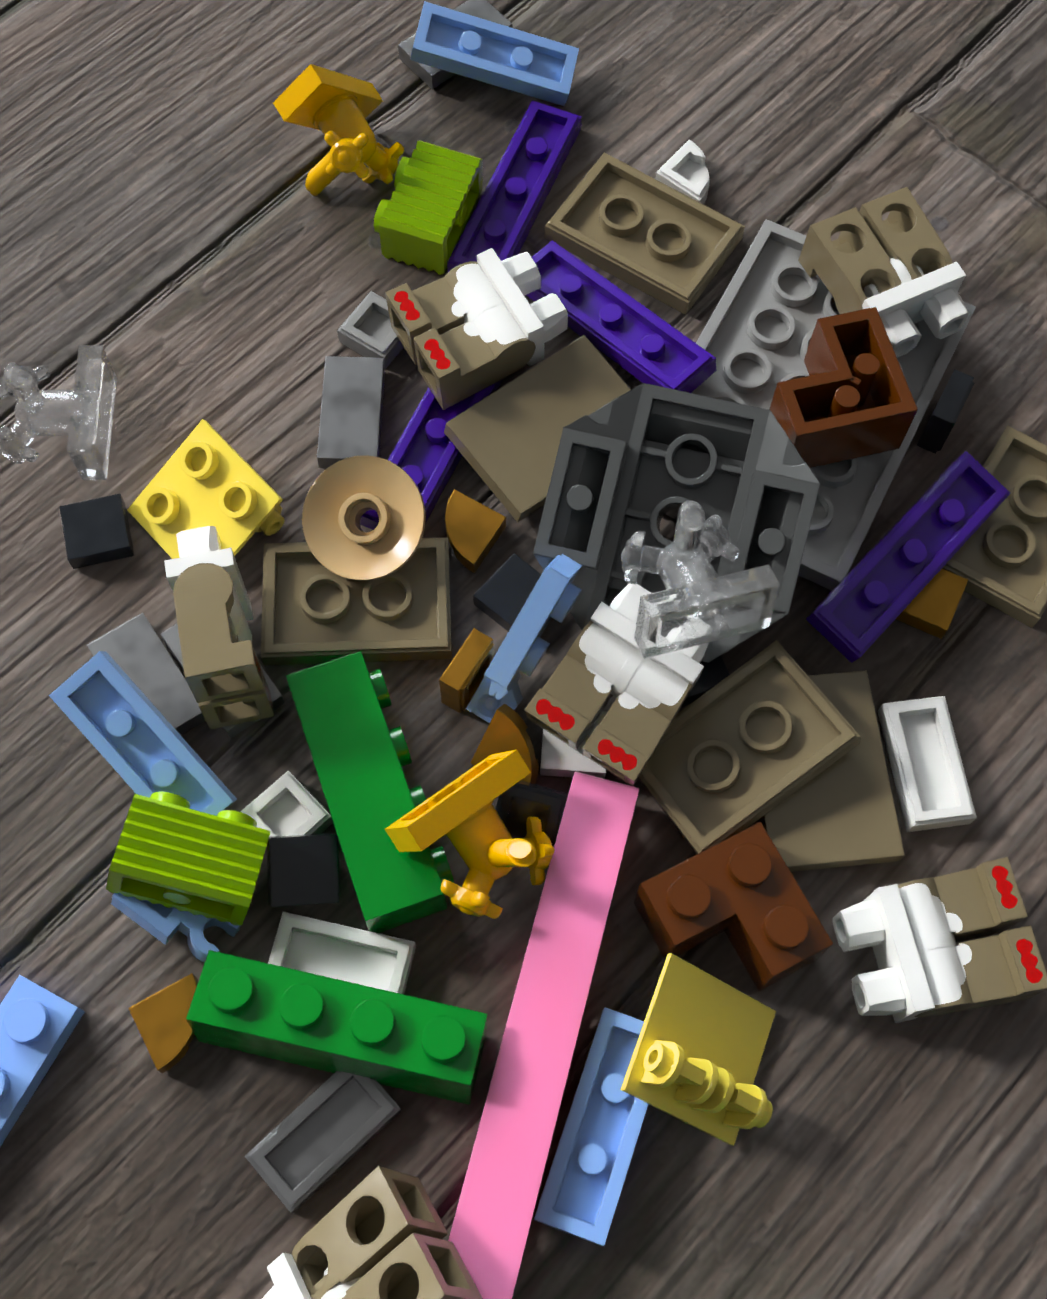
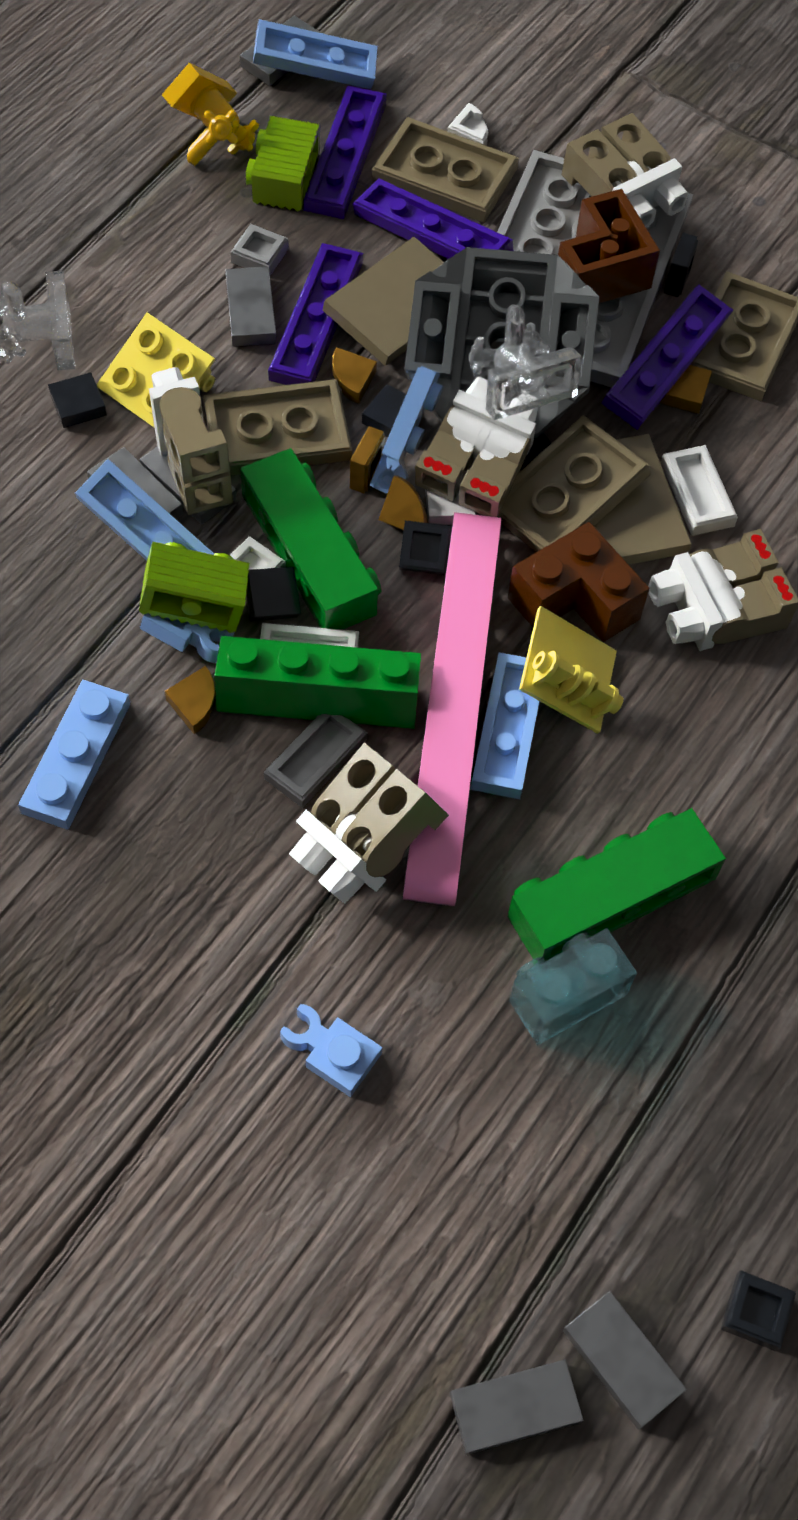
camera: 10 degrees left, 5 degrees down
(334, 514) = (268, 347): tan dish -> none
(475, 324) = (333, 234): hips -> none
(477, 832) = (397, 548): yellow piece -> none

